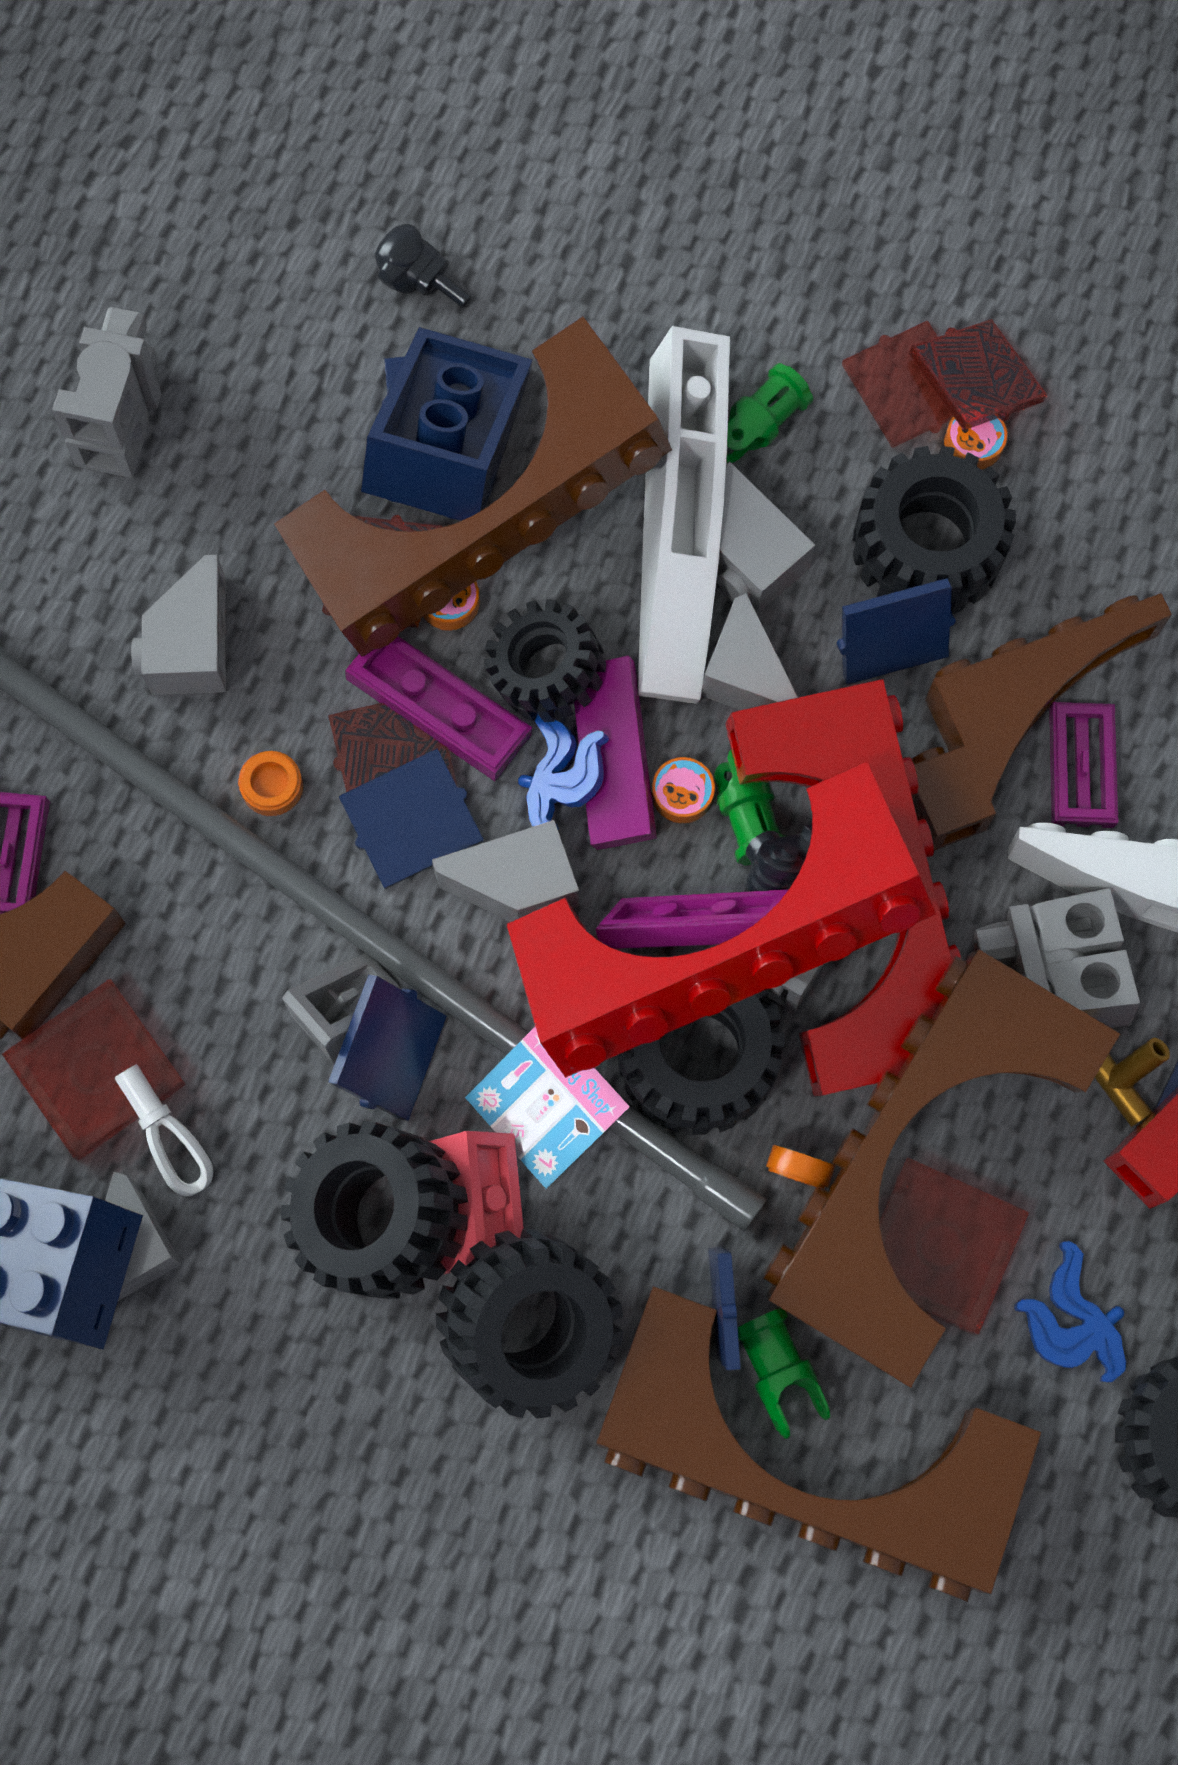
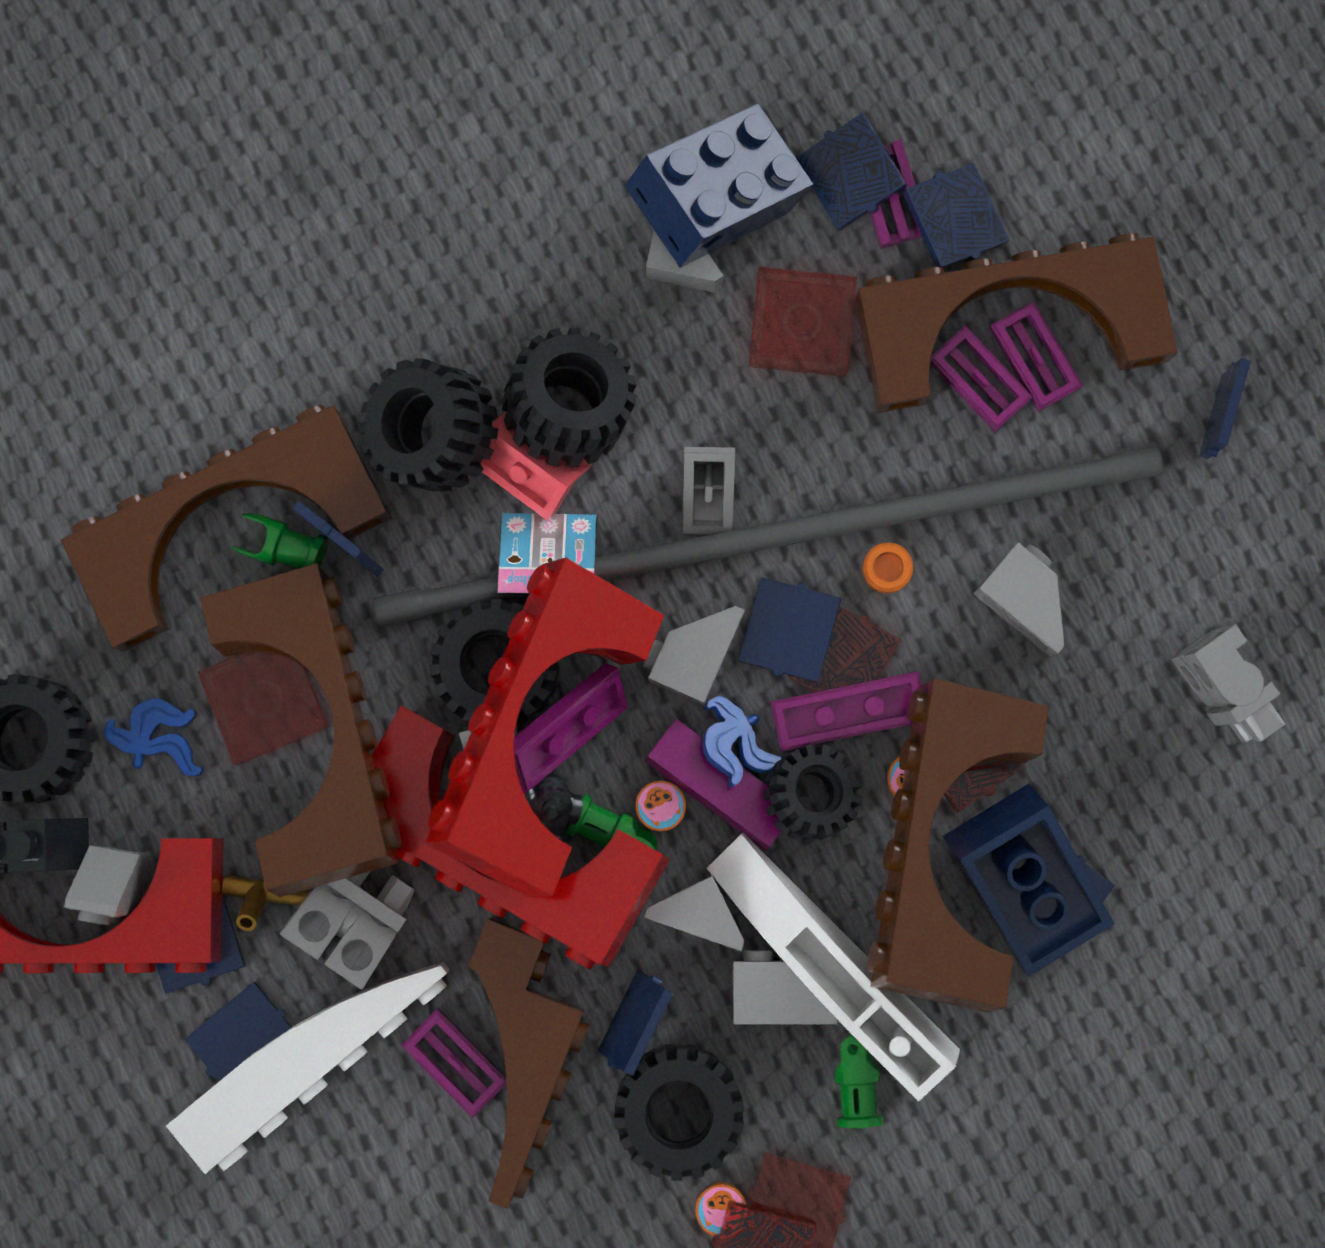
camera: 135 degrees right, 10 degrees up
(154, 1114) = (741, 327): white piece -> none
(387, 1048) = (658, 489): dark blue piece -> none
(413, 263) = (1165, 961): black piece -> none
(800, 1167) = (378, 660): orange tile -> none

